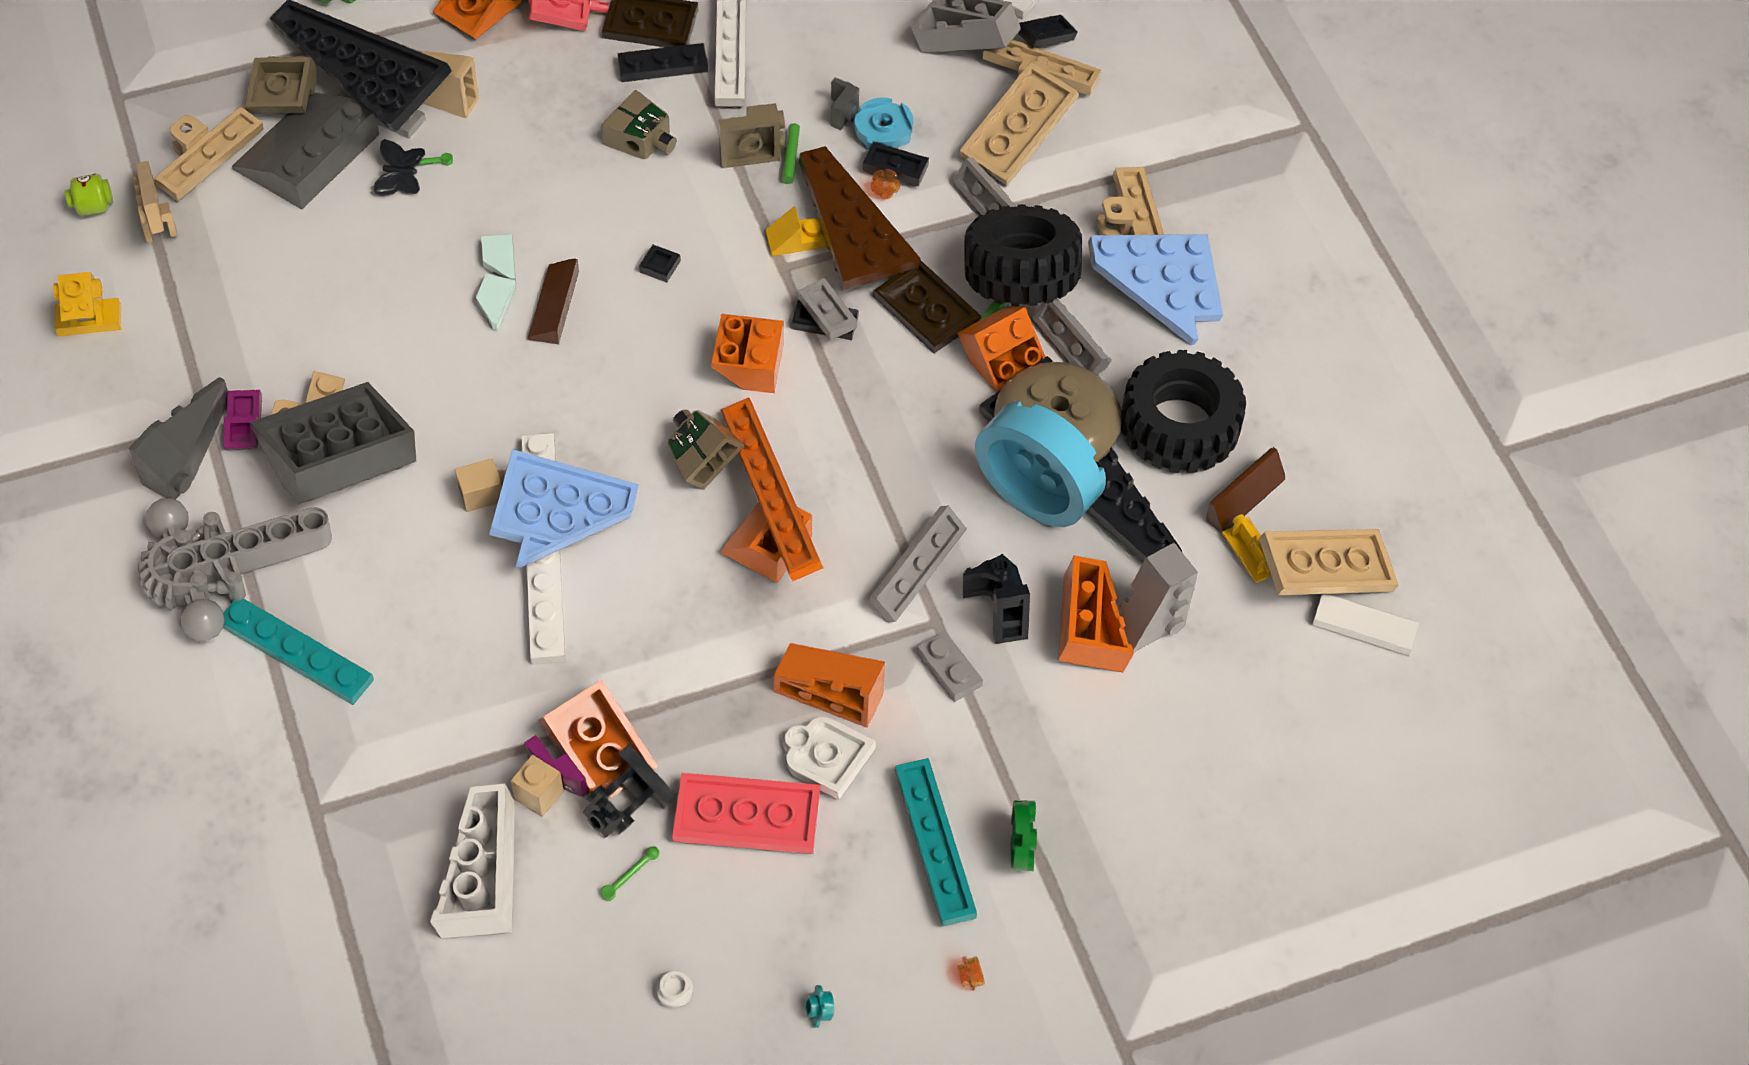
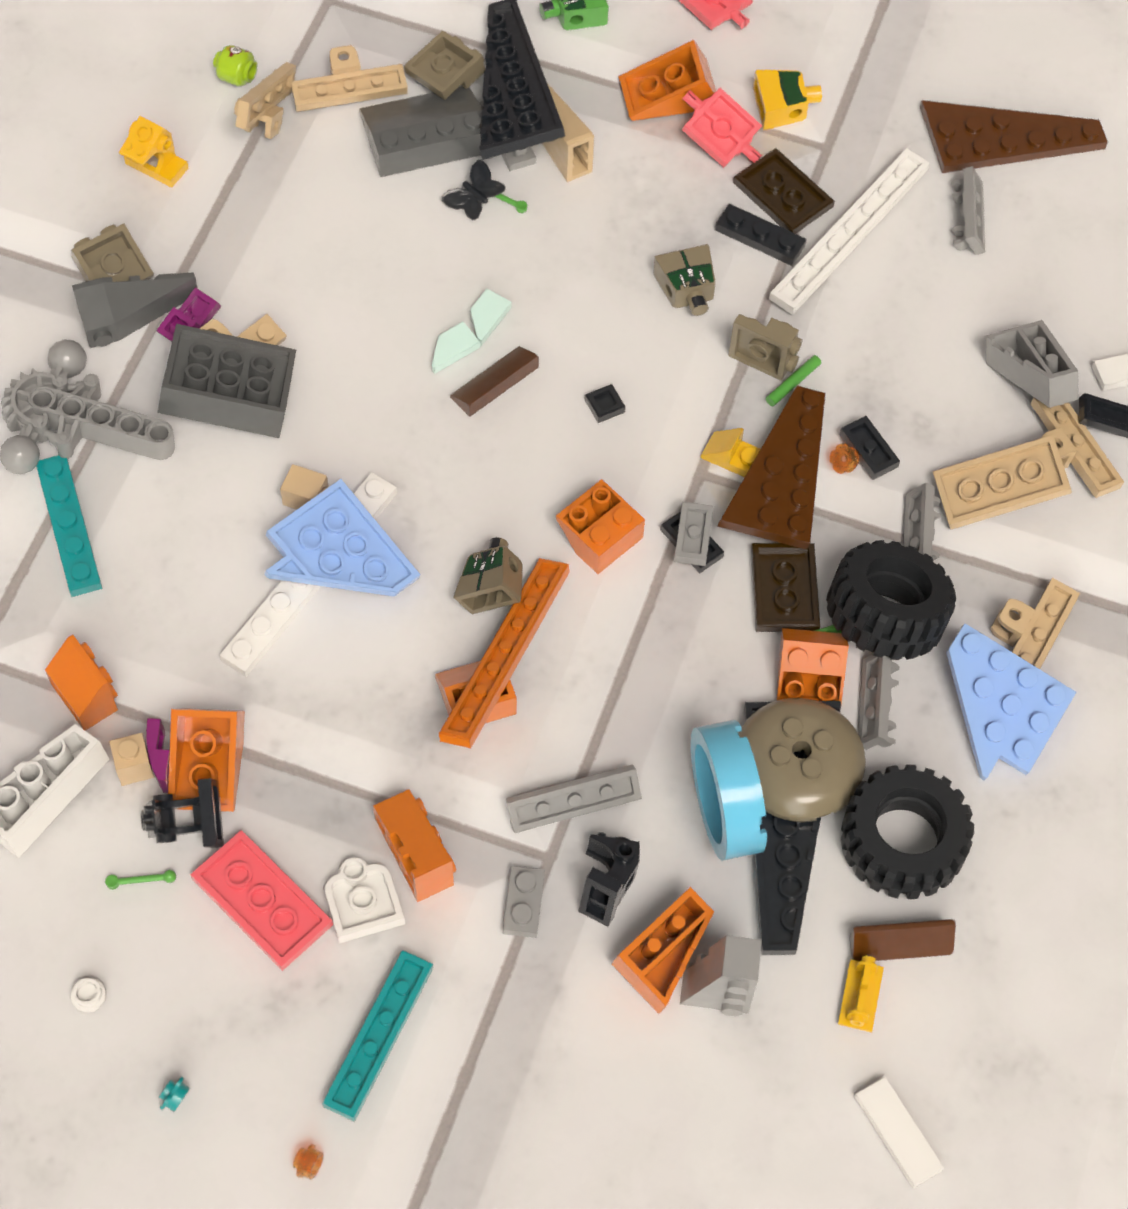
camera: 40 degrees right, 5 degrees up
(126, 414) = (111, 255): none -> dark tan plate
(438, 756) = (81, 683): none -> orange slope
(845, 102) = (873, 369): dark grey bracket -> none
(882, 109) = (892, 421): medium azure plate -> none
(1023, 835) = (440, 1081): green plate -> none
(1328, 561) = (909, 1055): tan plate -> none

